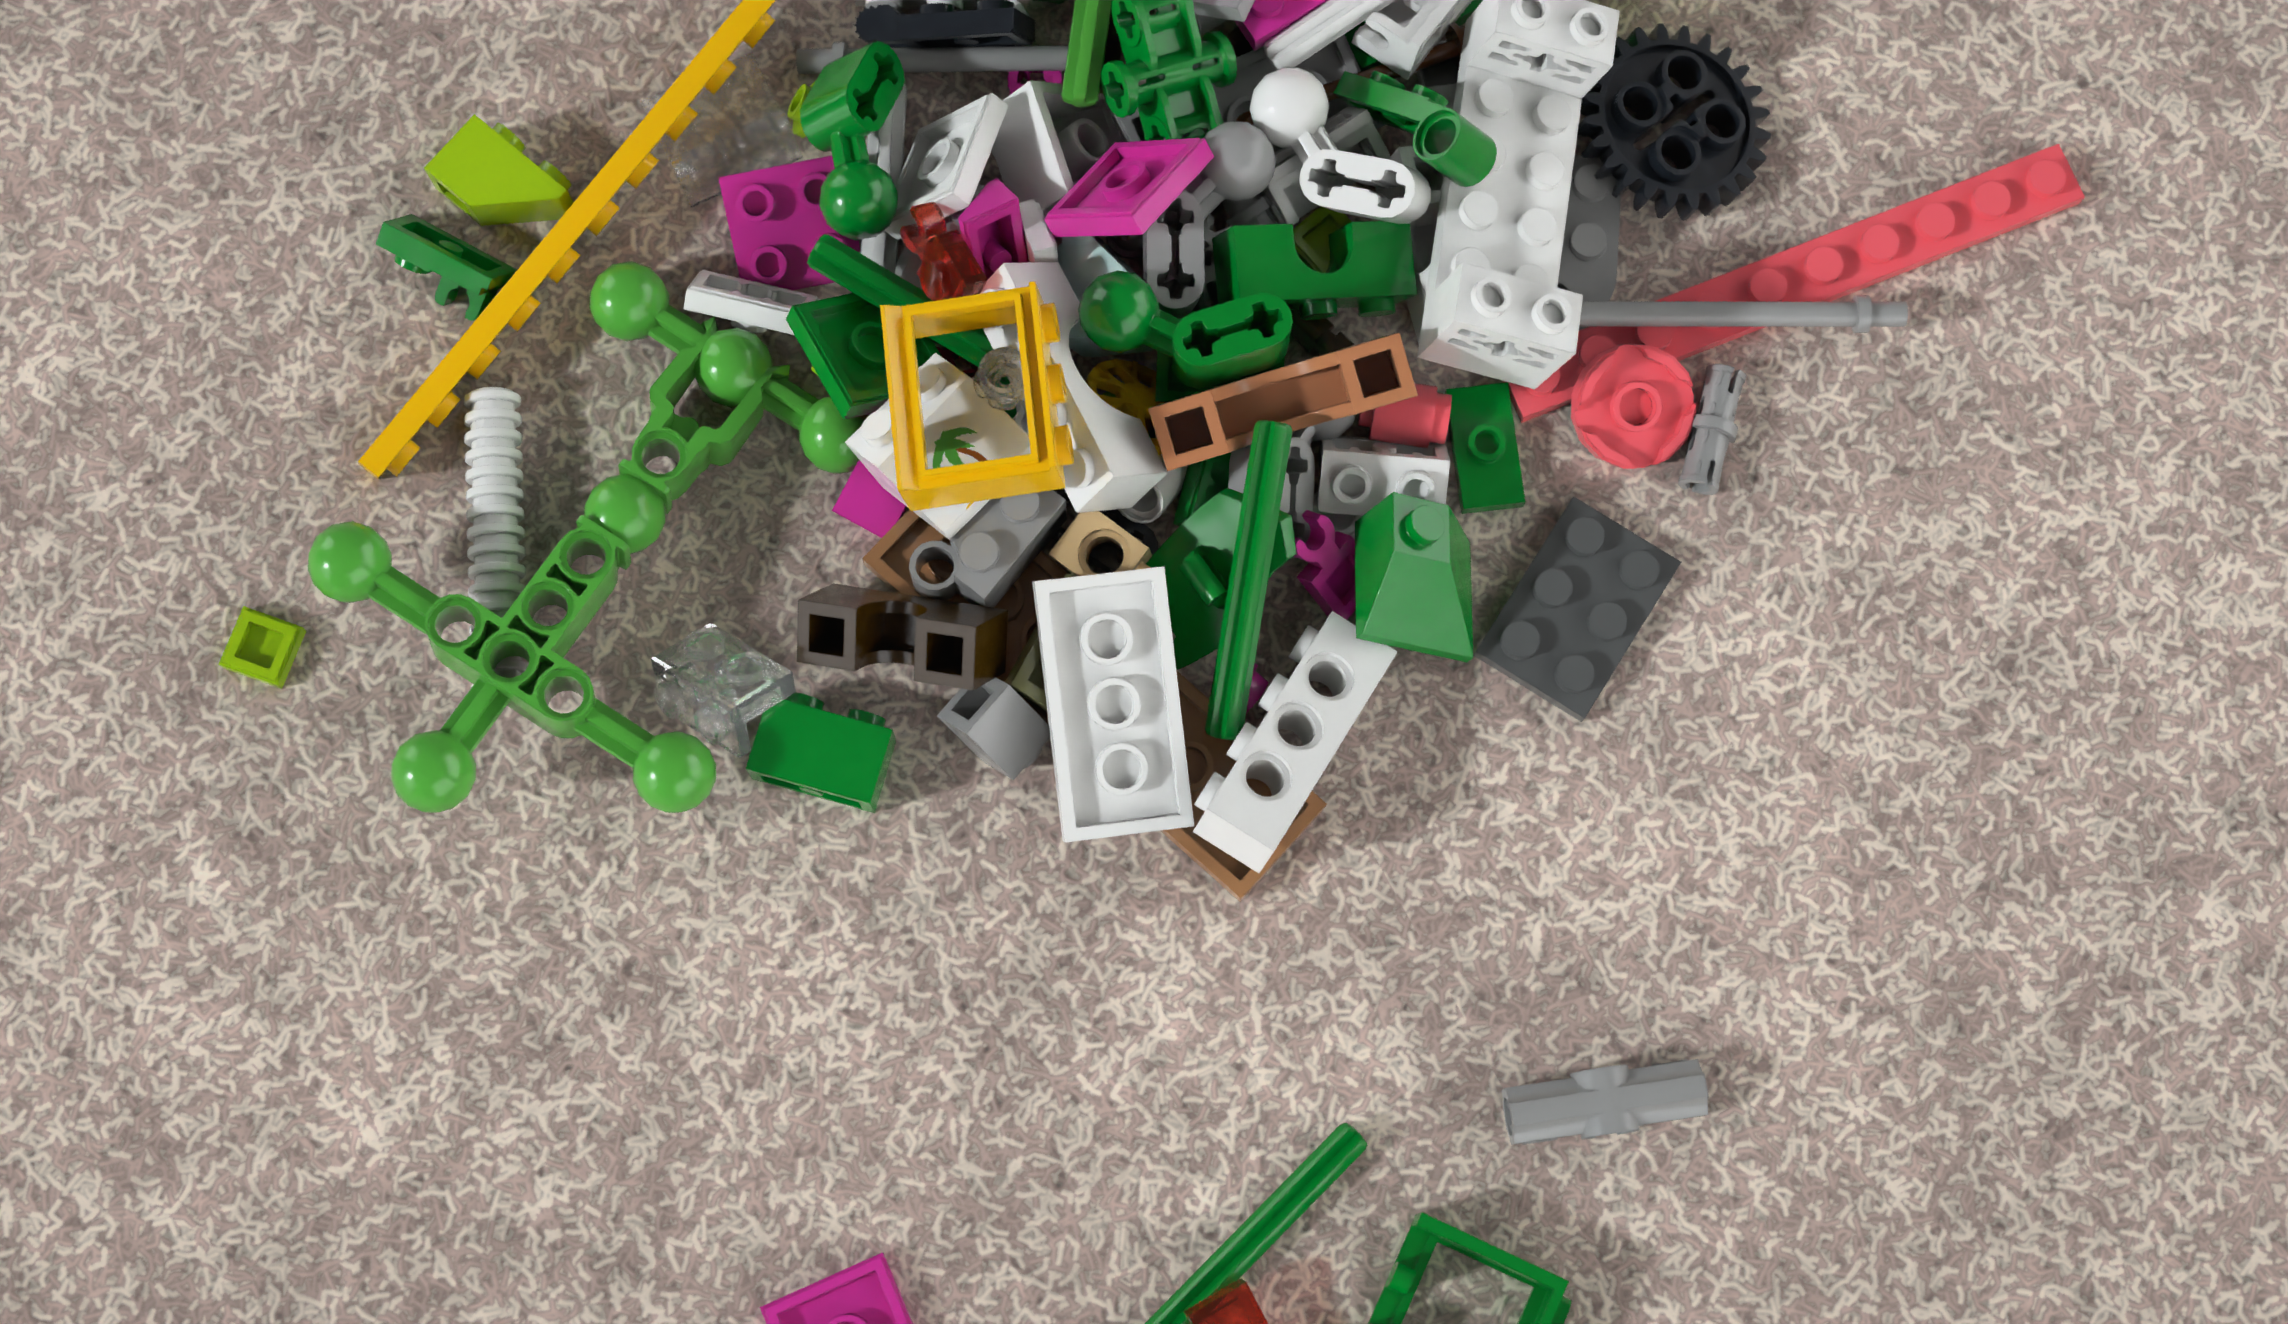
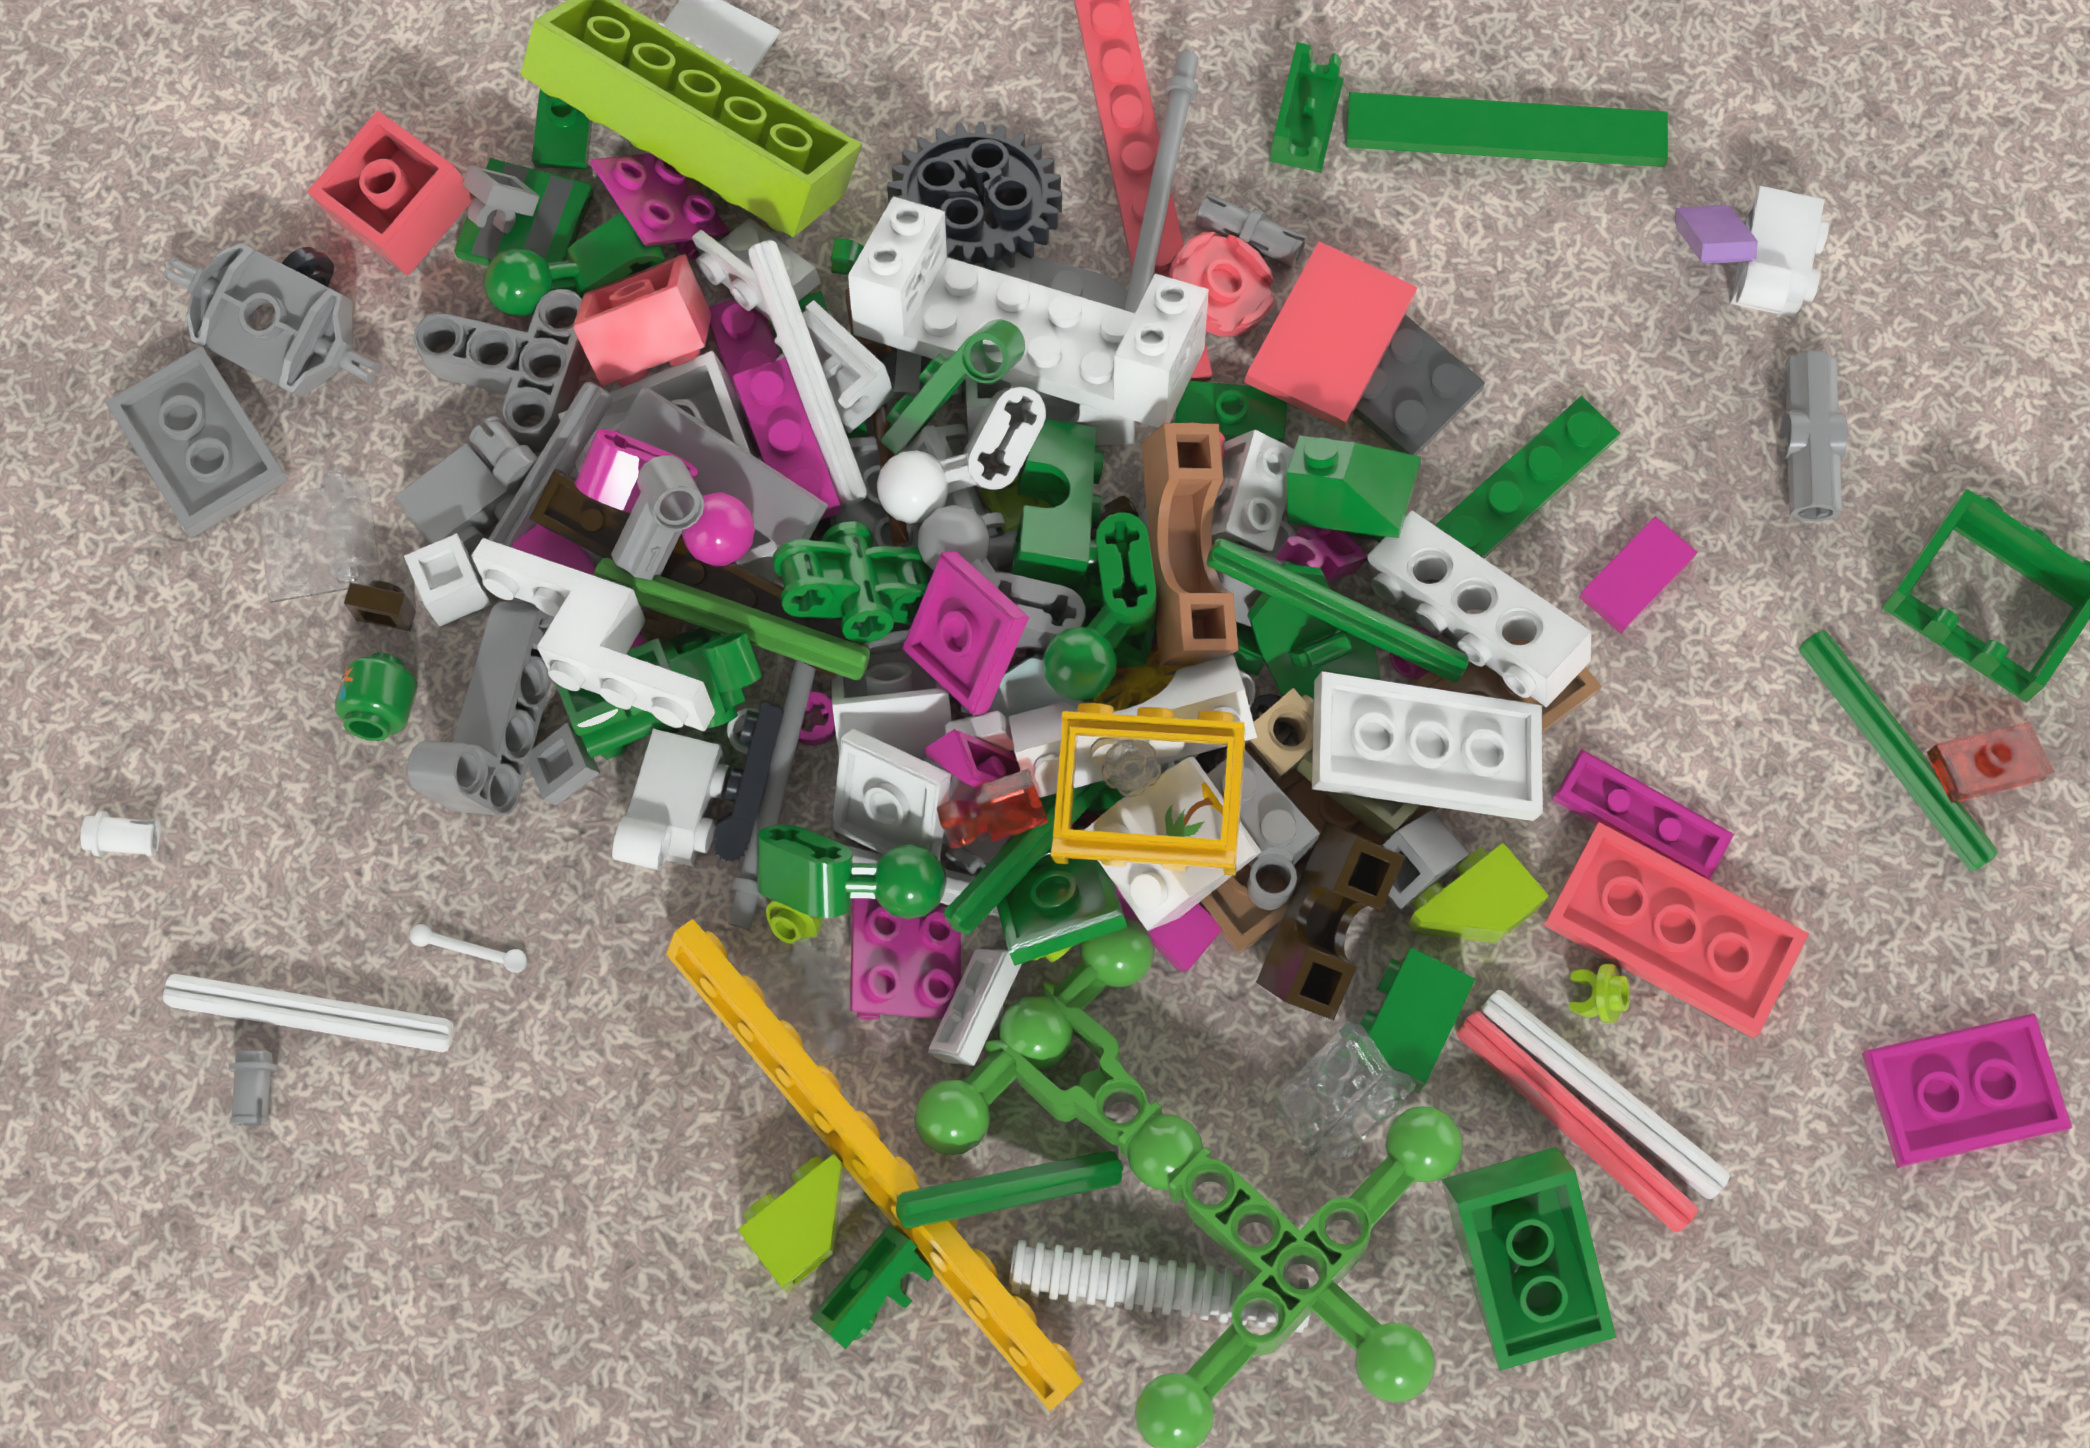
camera: 75 degrees left, 5 degrees down
(558, 364) = (1008, 1189): none -> green axle
(589, 912) = (1530, 1257): none -> green slope
(747, 947) = (1577, 1121): none -> coral axle
(782, 973) = (1606, 1095): none -> white axle
(891, 957) = (1608, 996): none -> lime plate
(968, 807) = (1483, 902): none -> lime slope
(978, 1023) = (1676, 930): none -> coral plate
(1104, 972) = (1642, 814): none -> dark pink tile
(1391, 927) = (1638, 574): none -> dark pink tile
(1470, 781) = (1530, 478): none -> green plate
(1594, 531) = (1331, 335): none -> coral tile
(1826, 1030) = (1787, 237): none -> white hinge
(1830, 947) = (1716, 234): none -> medium lavender tile
(1877, 462) = (1307, 111): none -> green hinge
(1917, 699) = (1507, 129): none -> green tile

